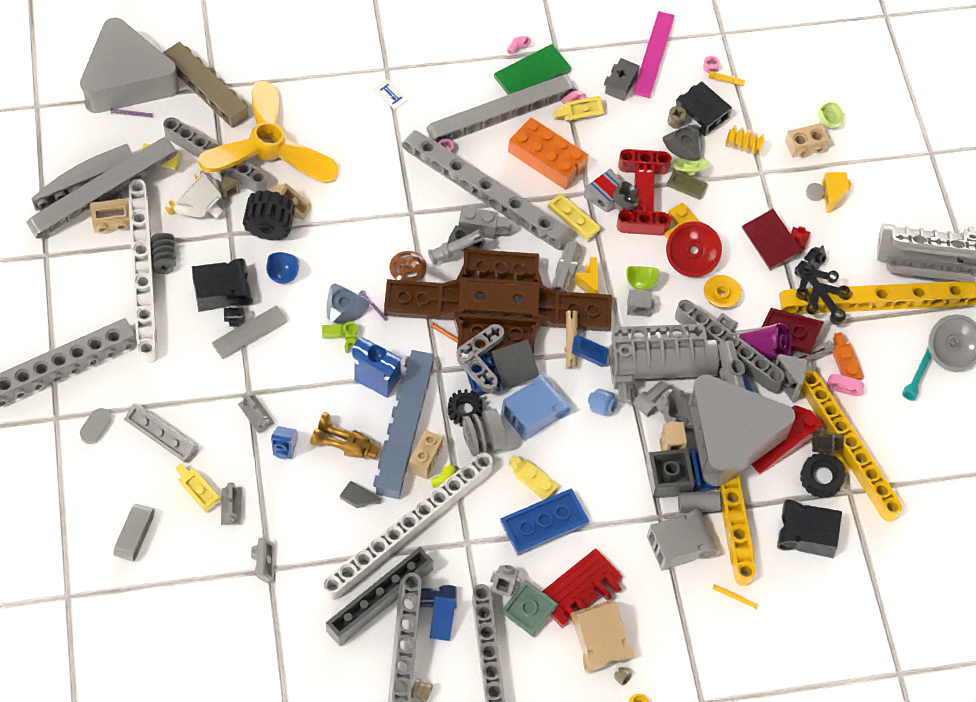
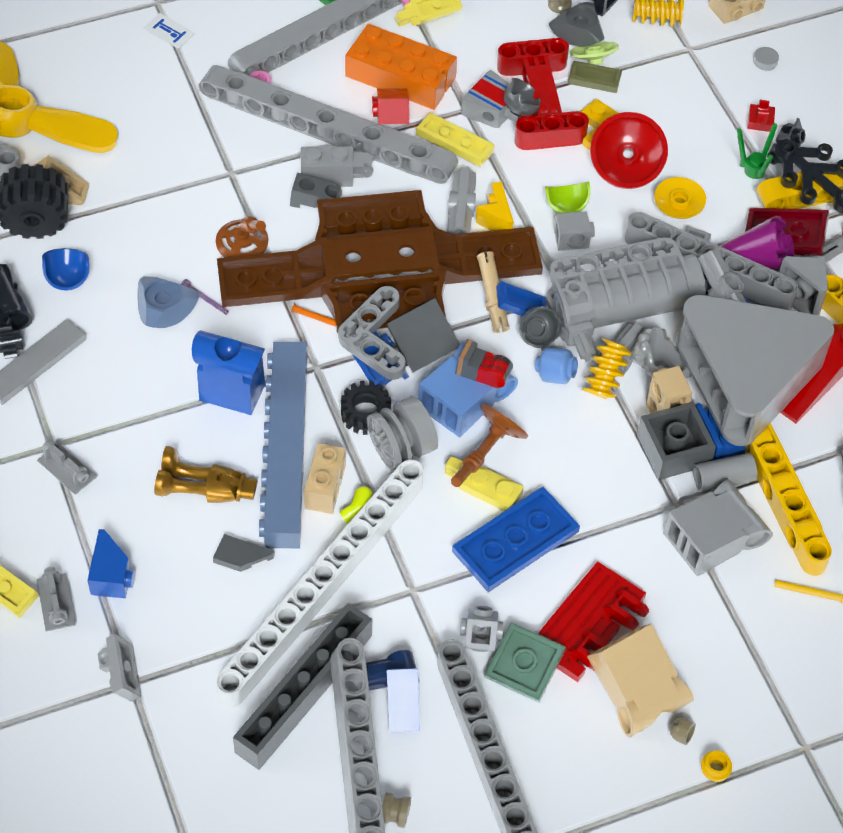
camera: 10 degrees left, 5 degrees down
(270, 490) = (109, 569): none -> blue slope
(284, 442) = (116, 499): slope -> none
(349, 332) = (177, 335): lime bar -> none
(447, 250) = (293, 206): light grey pin -> none
(528, 461) = (499, 428): none -> dark orange dish
(533, 185) = (391, 106): none -> brick
(549, 395) = (483, 365): none -> leg
(597, 371) = (539, 326): none -> dark grey hair
(636, 413) = (607, 369): none -> yellow piece
(771, 239) = (719, 117): dark red tile -> none
(784, 273) = (755, 163): none -> green plant
(836, 187) = (793, 49): yellow slope -> none

